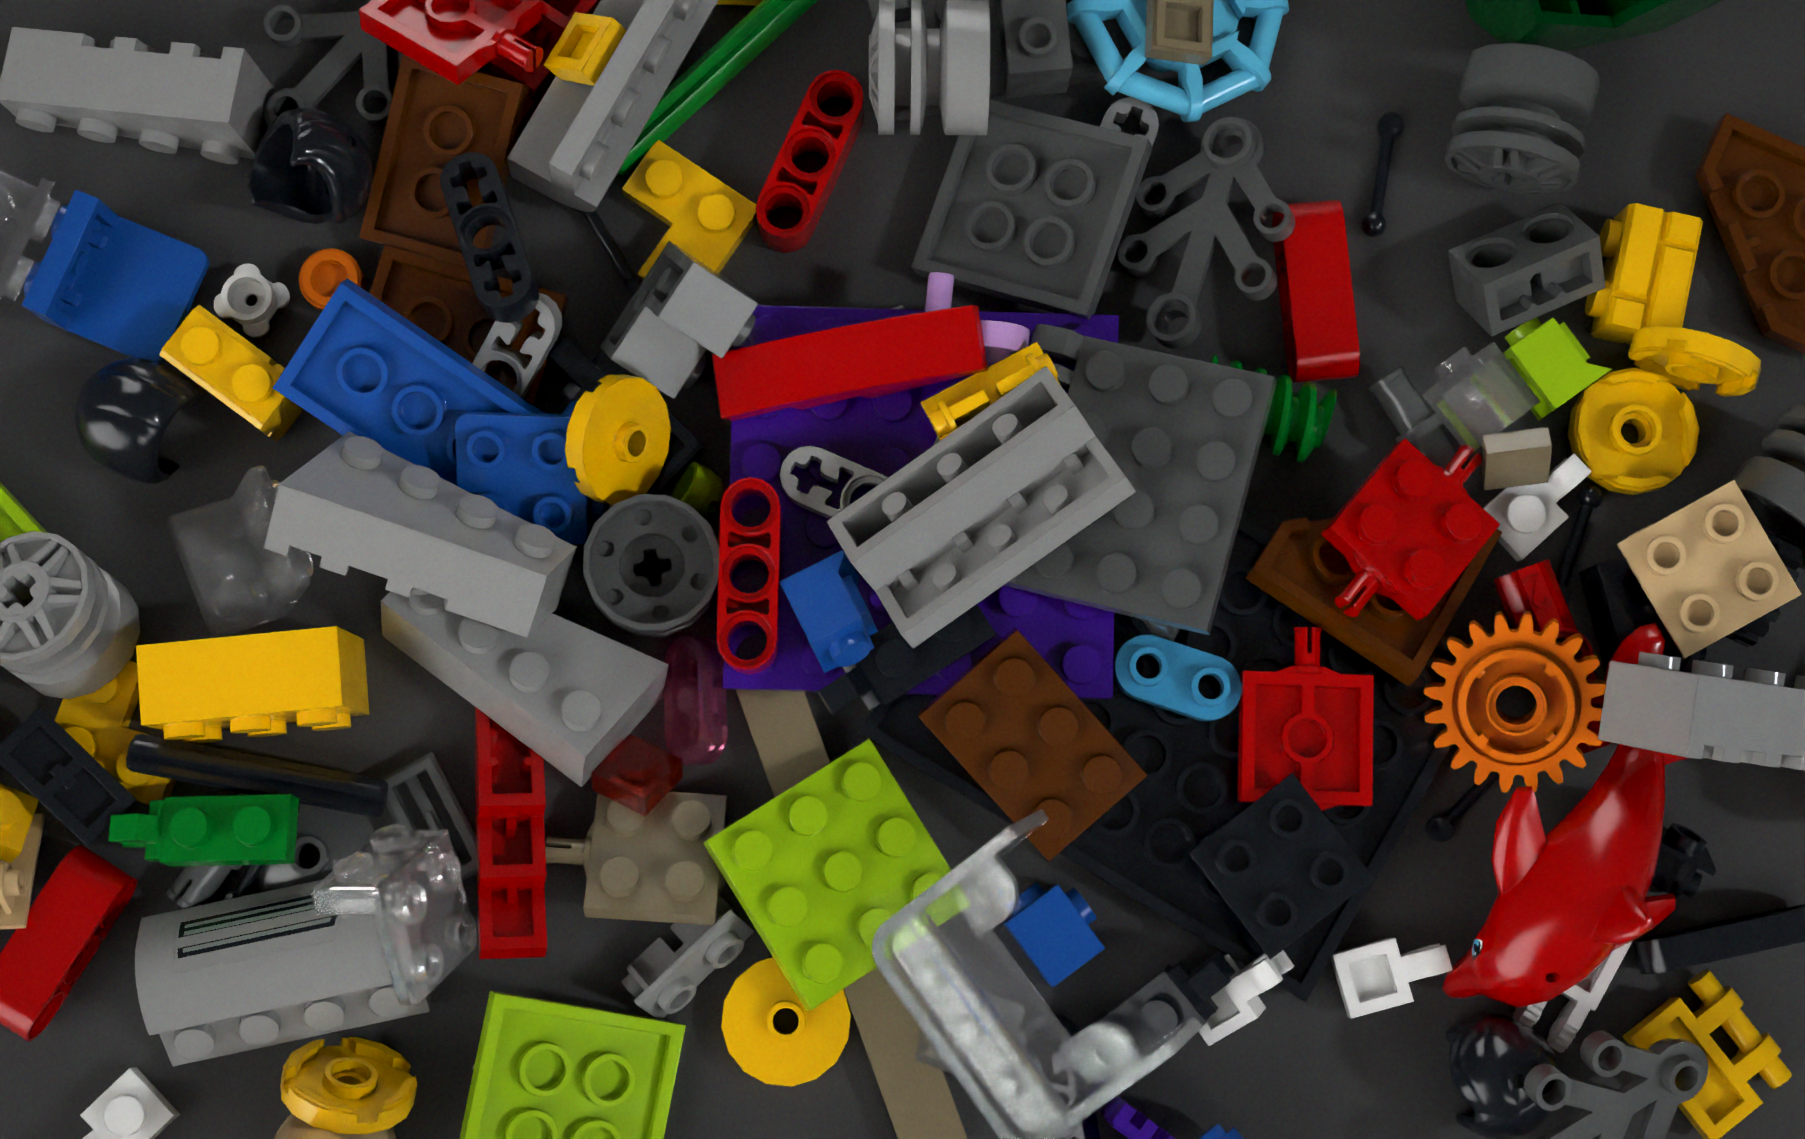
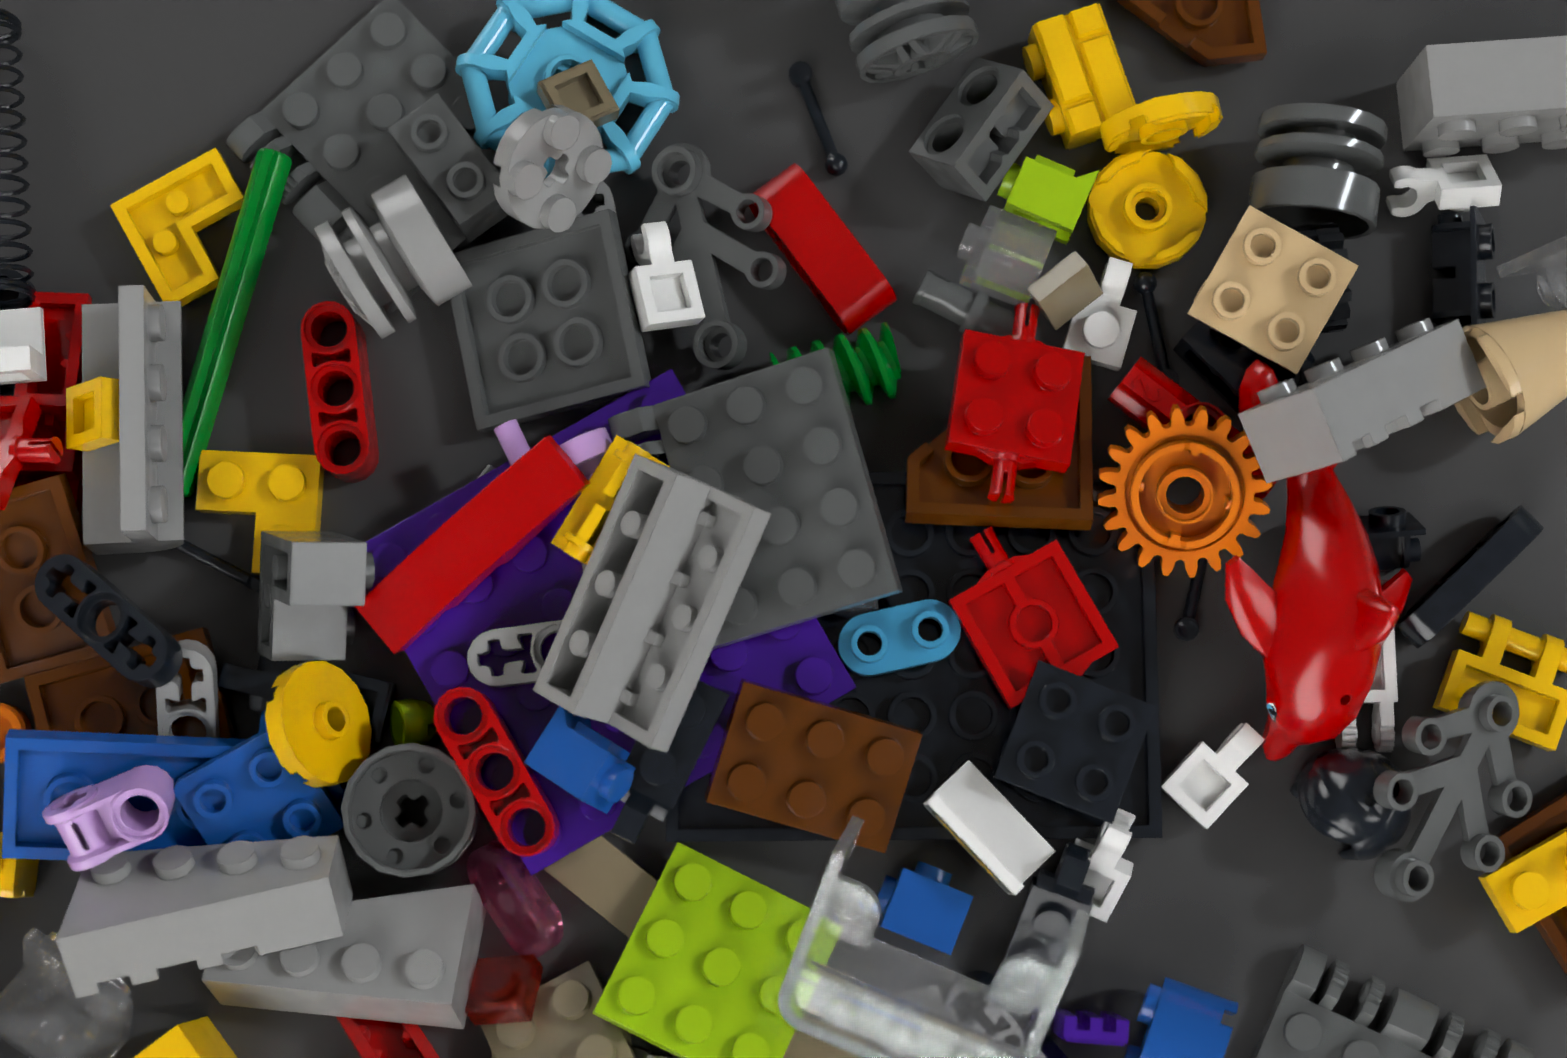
camera: 25 degrees left, 0 degrees up
(378, 409) = (102, 822): none -> lavender piece
(1144, 87) = (574, 179): none -> light grey plate
(1153, 238) = (662, 289): none -> white plate
(1155, 896) = (989, 828): none -> white panel

